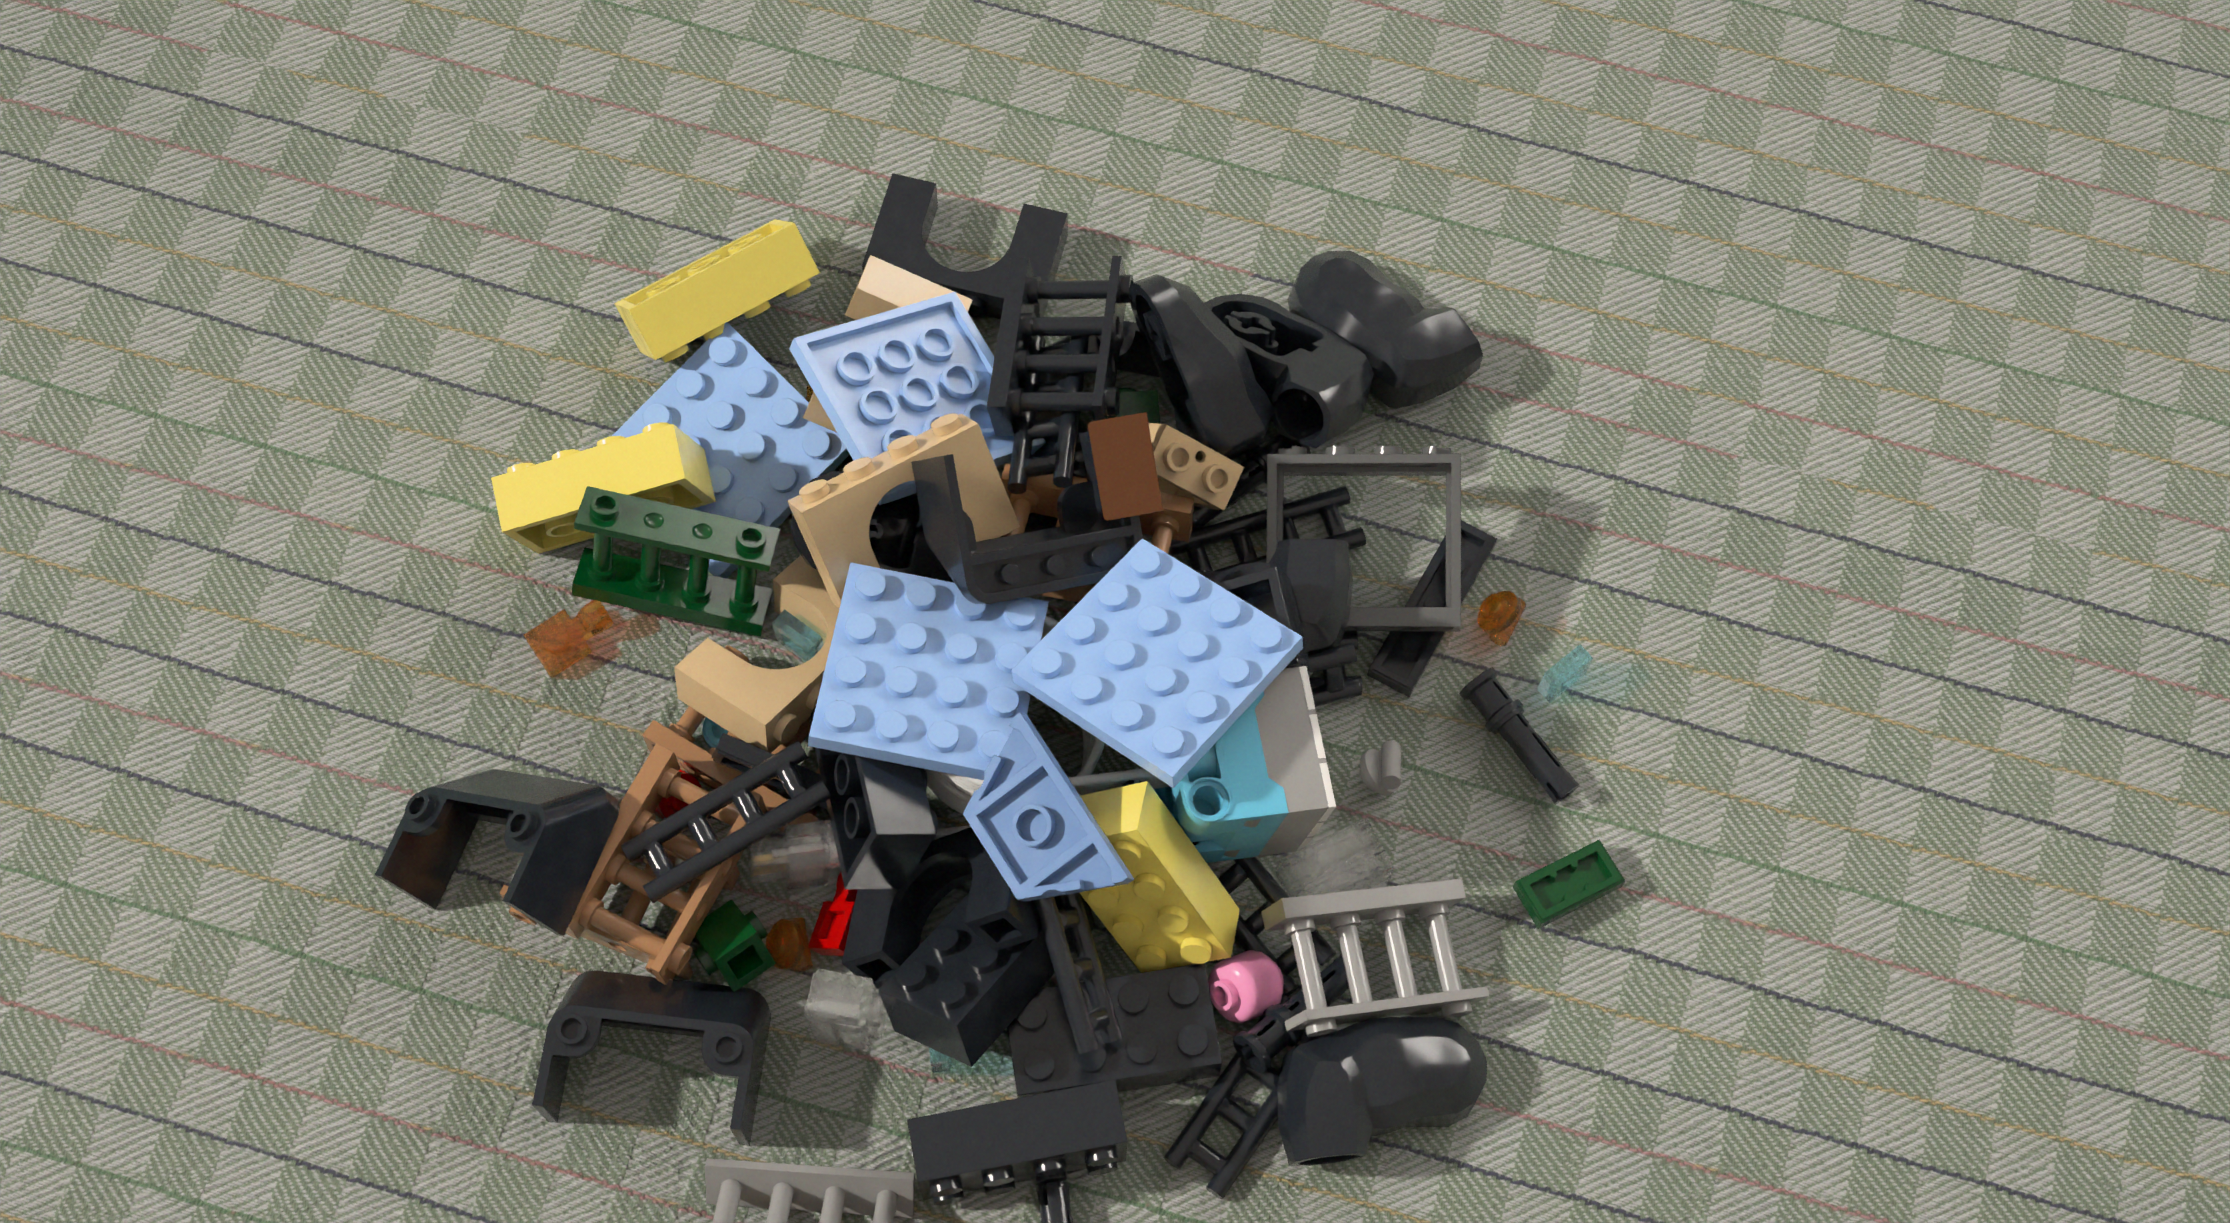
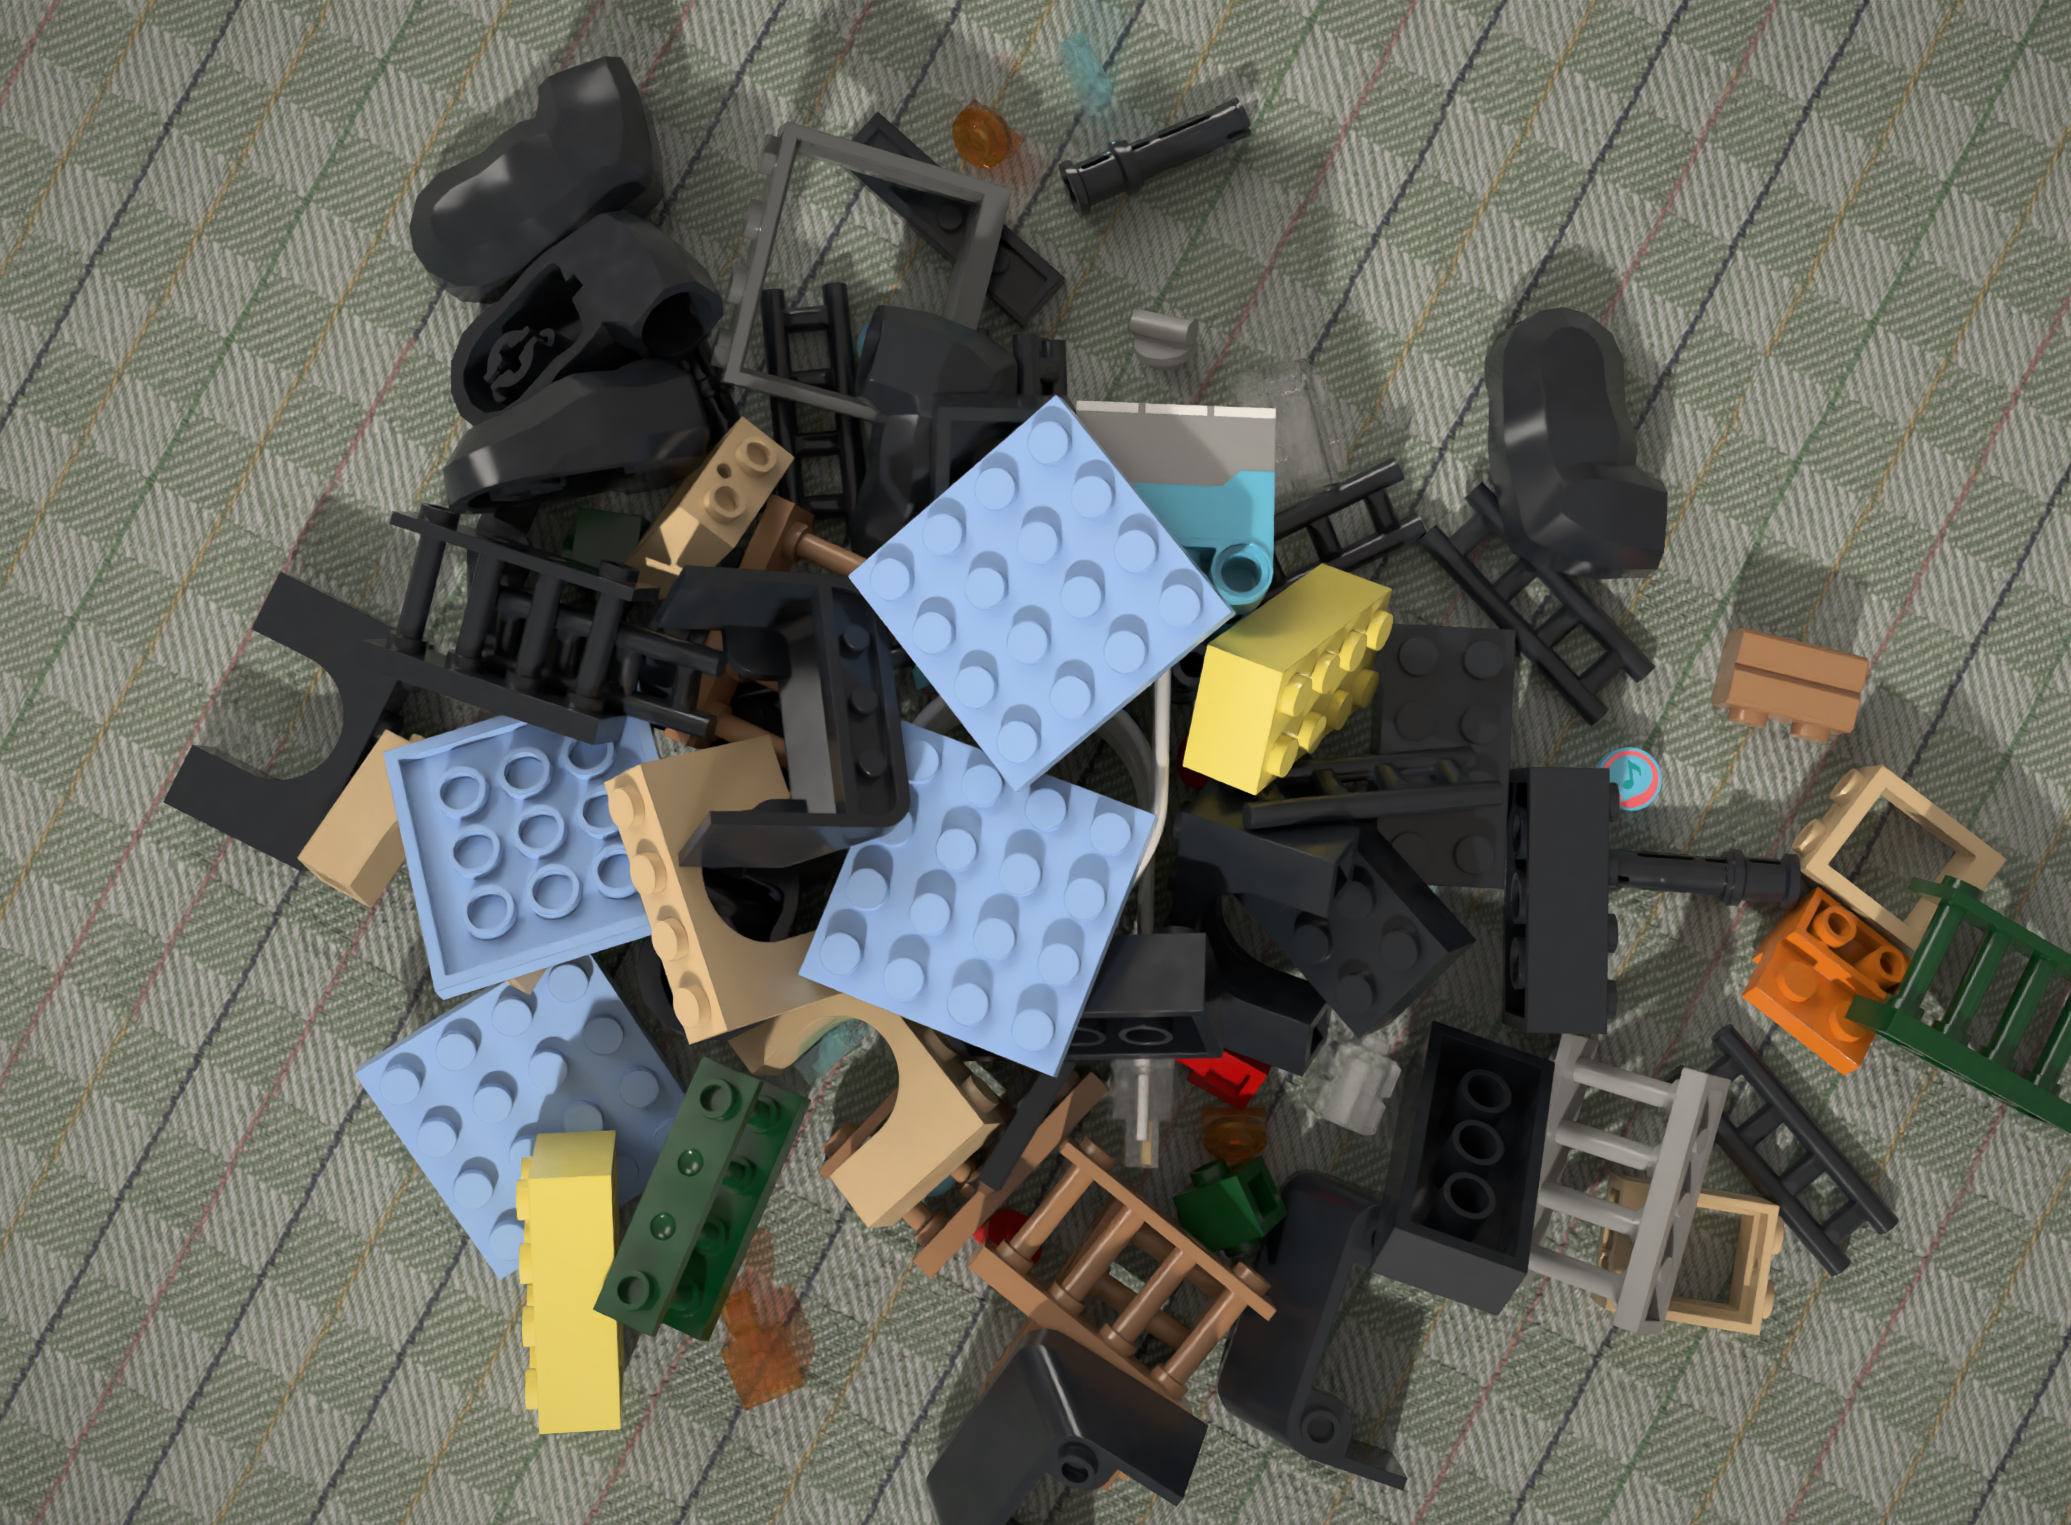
camera: 75 degrees left, 20 degrees up
(695, 819) = (1083, 1233): black bar -> none
(718, 289) = (298, 1077): light yellow brick -> none
(793, 1094) = (1464, 1169): none -> black brick
(1039, 823) = (1238, 796): medium blue wing -> none
(1125, 466) = (739, 574): reddish brown panel -> none
(1127, 1195) = (1636, 776): none -> medium azure tile
(1245, 986) = (1419, 574): bright pink head -> none
(1270, 1034) = (1479, 547): black pin -> none
(1388, 908) = (1365, 436): light grey fence -> none
(1568, 884) = (1360, 146): dark green plate -> none

